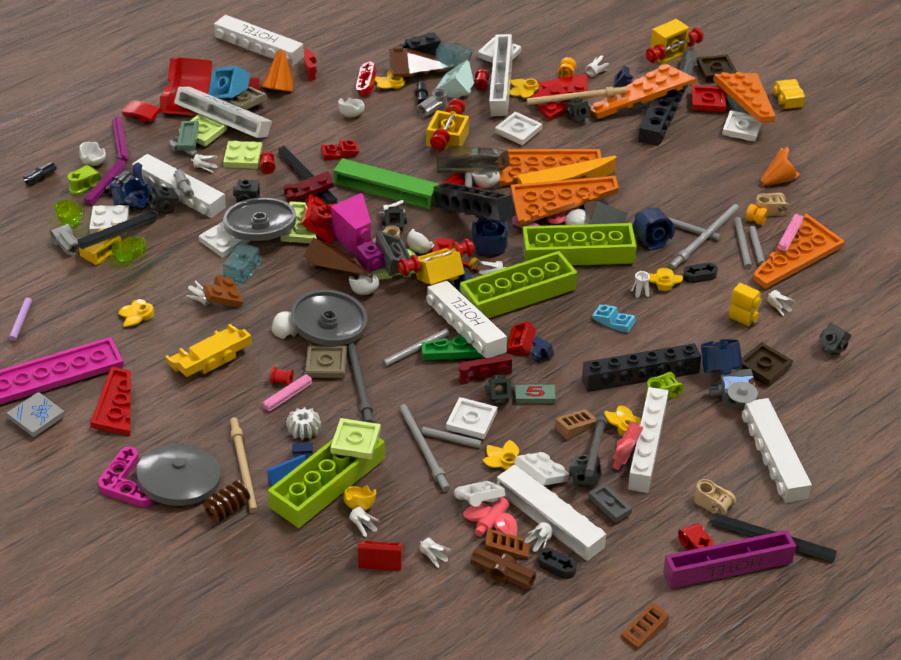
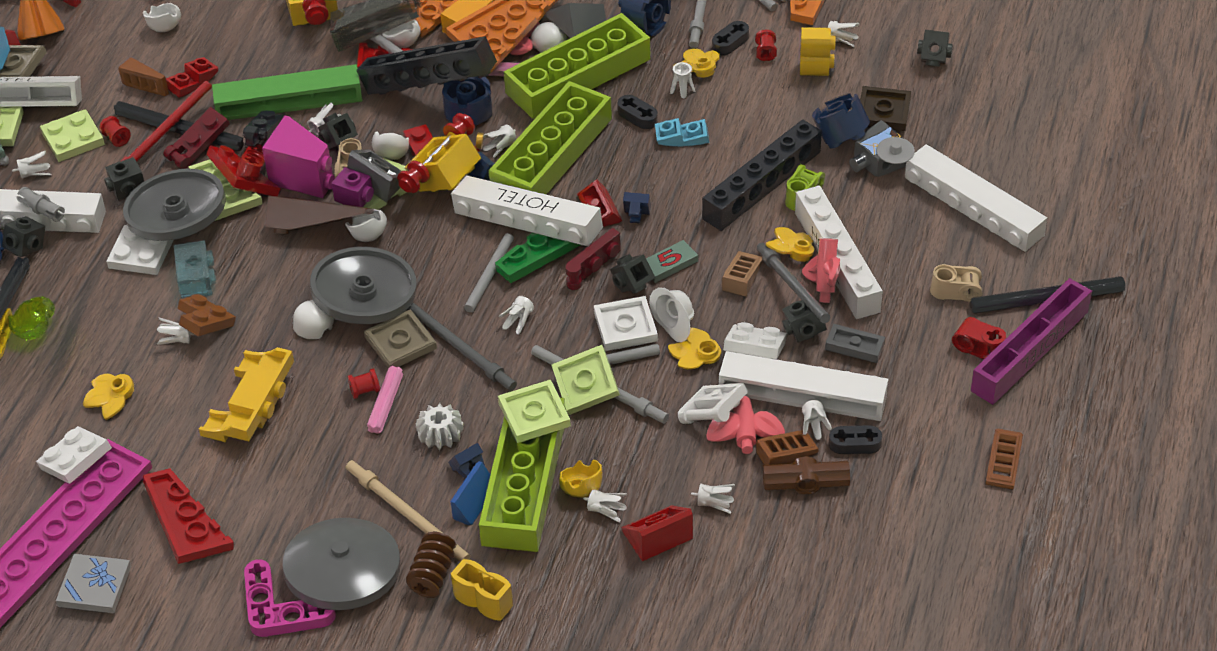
camera: 30 degrees left, 5 degrees up
(85, 336) = (73, 454): none -> white plate
(241, 531) = (482, 589): none -> yellow brick
(301, 170) = (145, 146): none -> red bar
(308, 137) = (143, 77): none -> dark orange slope
(338, 197) = (261, 127): none -> black hinge
(412, 379) = (520, 308): none -> white piece
(413, 439) = (585, 379): none -> yellowish green plate
(507, 424) = (672, 311): none -> white piece
(594, 288) = (637, 112): none -> black beam
(717, 289) = (766, 49): none -> red bush

